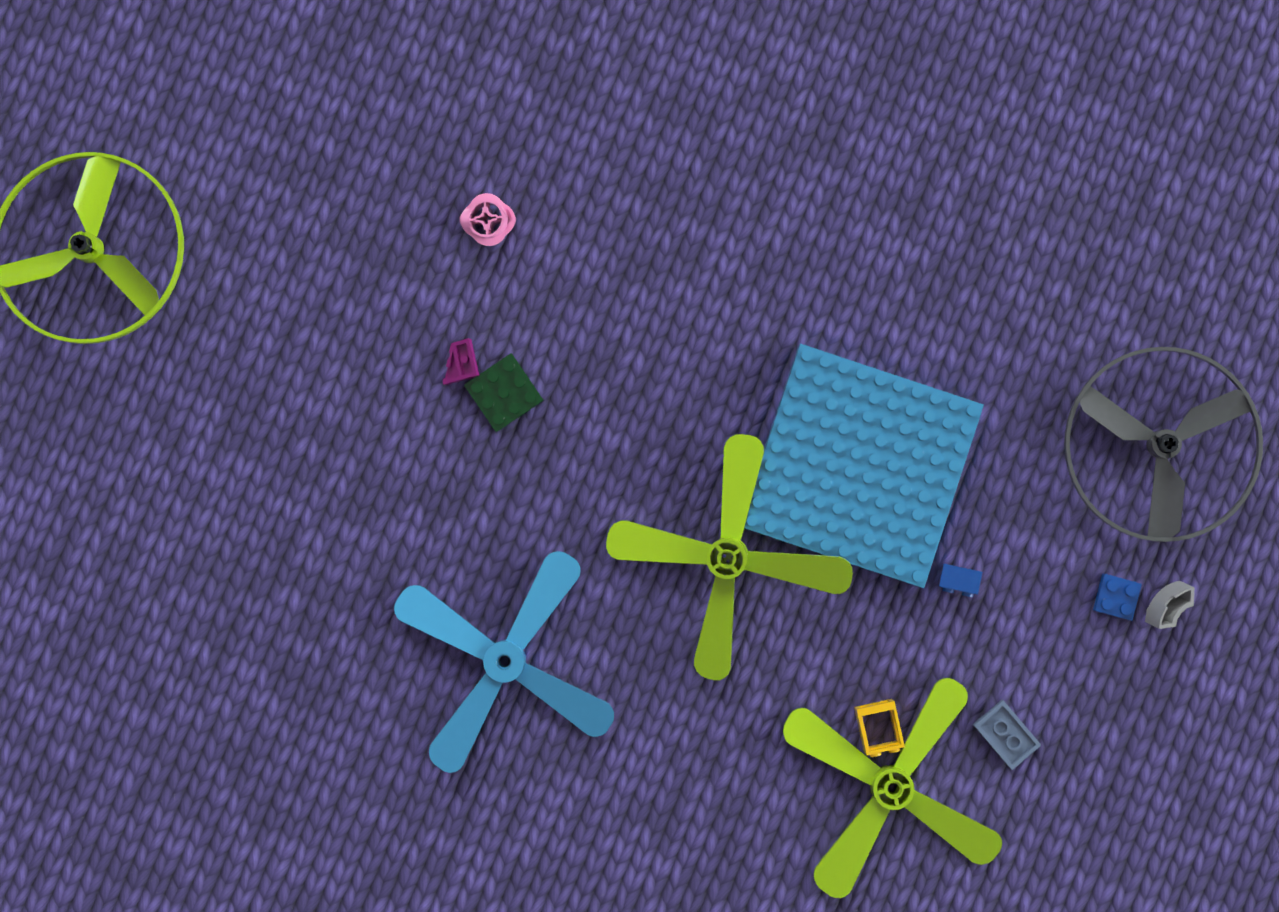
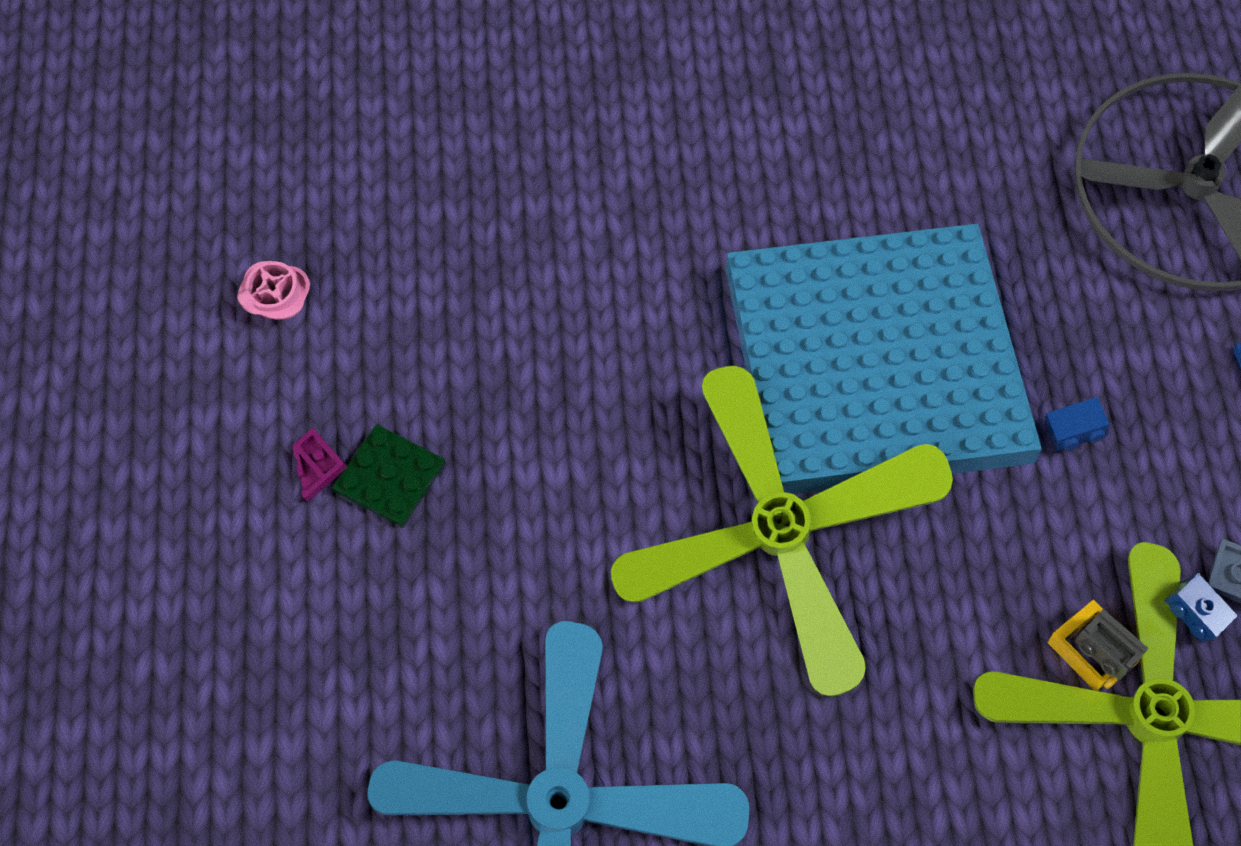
camera: 30 degrees left, 25 degrees down
(883, 738) = (1111, 645): none -> dark grey hinge
(958, 738) = (1200, 608): none -> brick

